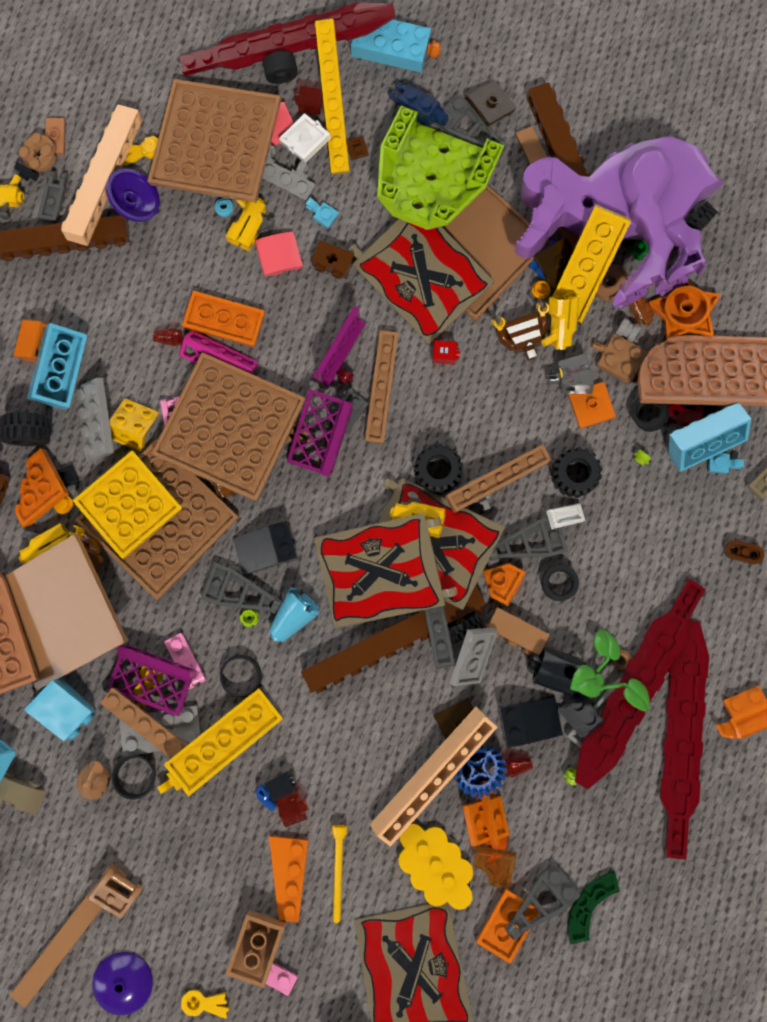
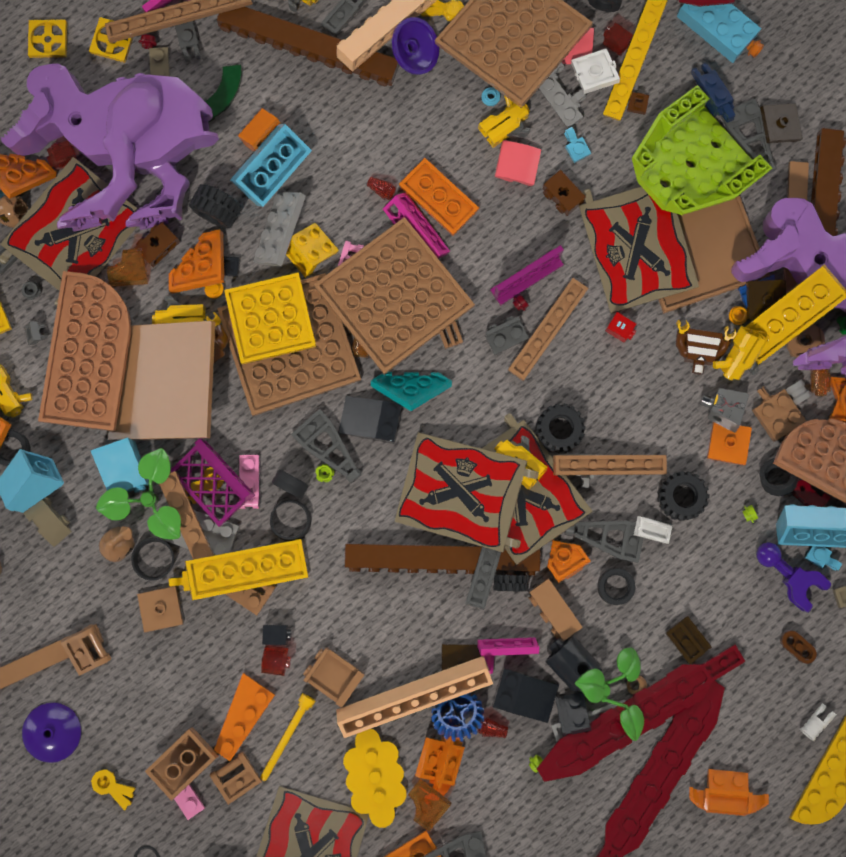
camera: 30 degrees right, 0 degrees up
(72, 744) = (115, 502): none -> bright green plant
(164, 818) = (160, 609): none -> medium nougat plate
(223, 644) = (290, 484): none -> black tyre
(243, 765) = (252, 599): none -> medium nougat plate
(264, 797) = (256, 637): blue arm -> none
(287, 502) = (411, 388): none -> teal plate
(293, 615) = (364, 491): medium azure cone -> none
(317, 938) = (239, 783): none -> medium nougat plate
(336, 437) = (483, 354): magenta fence -> none
(352, 795) = (333, 676): none -> medium nougat panel
(473, 656) = (504, 610): light grey tile -> none
(477, 696) = (511, 646): none -> dark pink piece
(646, 596) = (688, 640): none -> dark brown plate
(711, 493) = (795, 578): none -> dark purple piece

